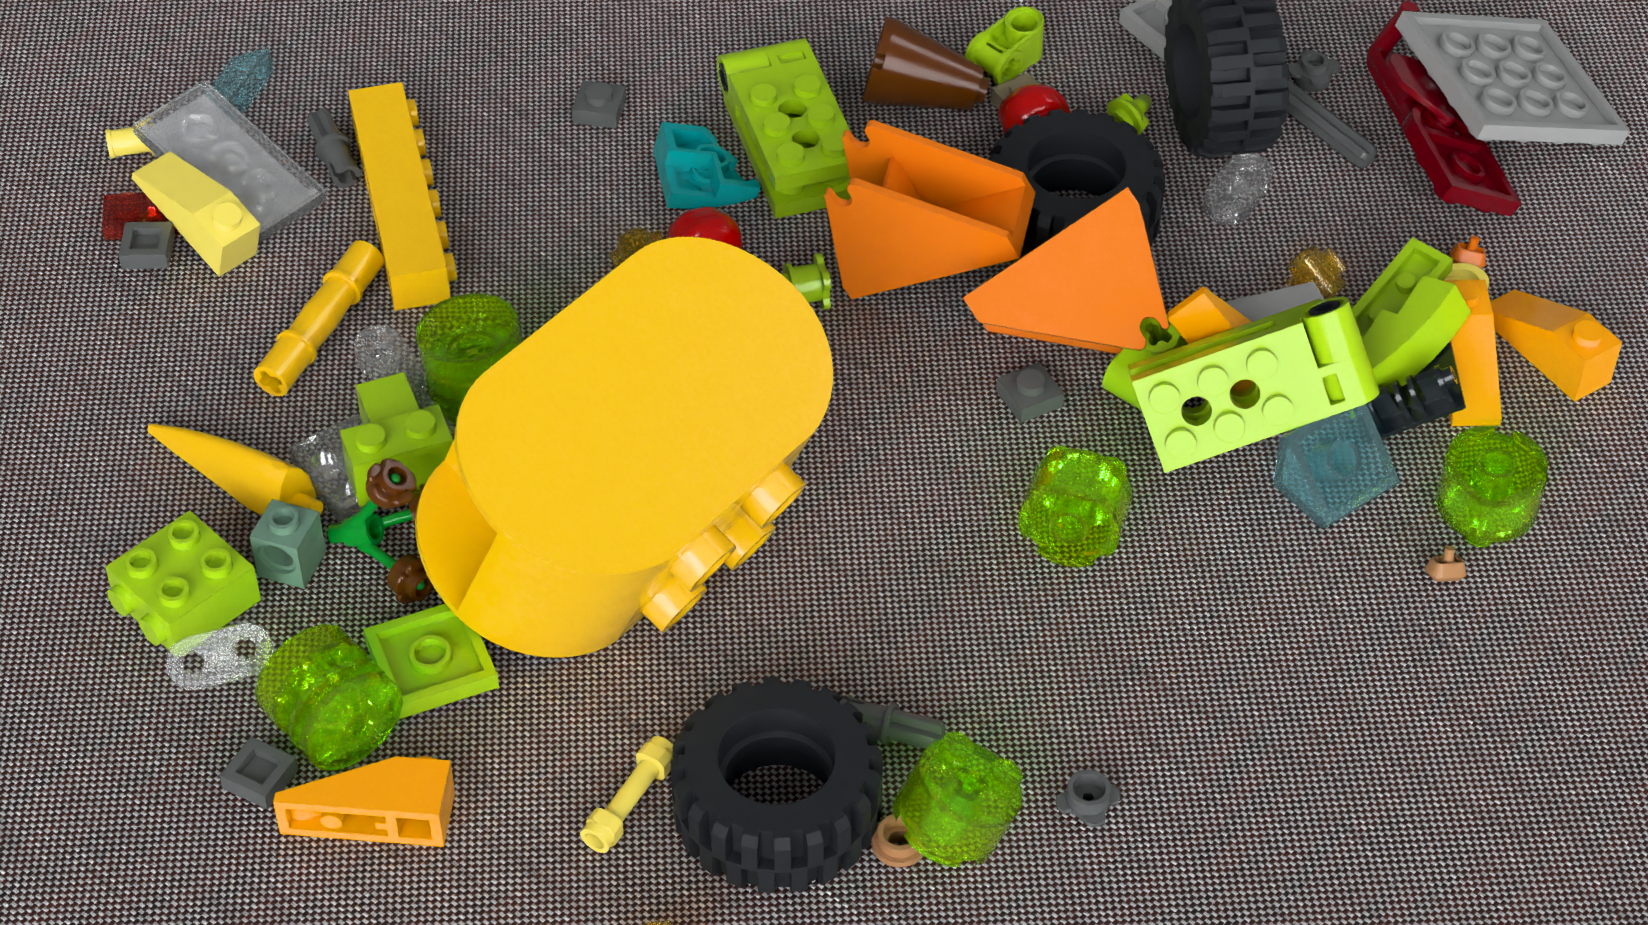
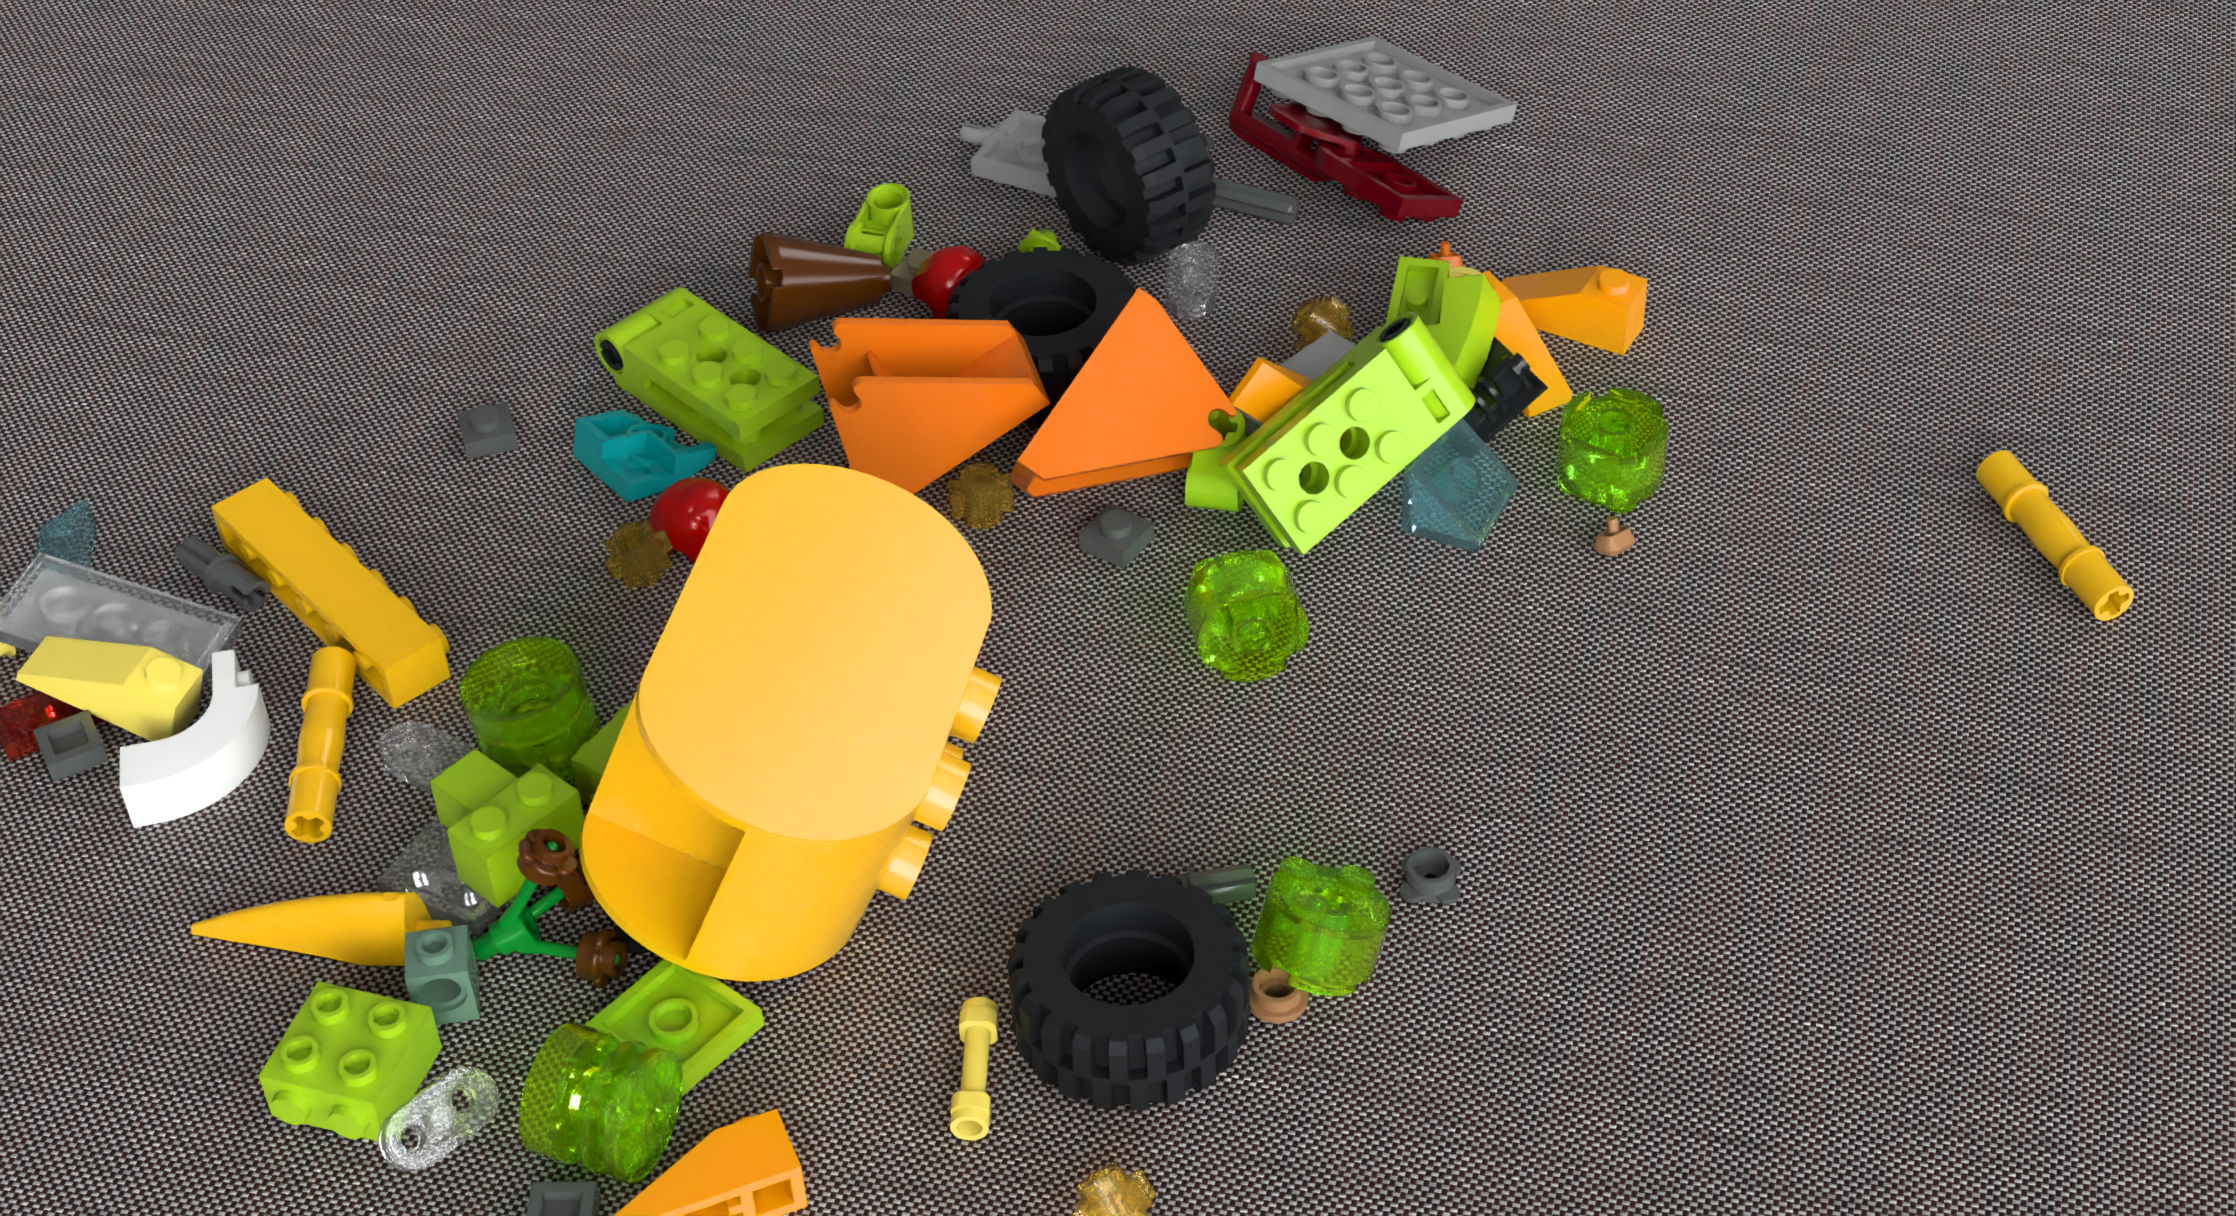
camera: 25 degrees left, 5 degrees down
(231, 296) = (204, 761): none -> white arch
(938, 313) = (981, 495): none -> clear yellow gear

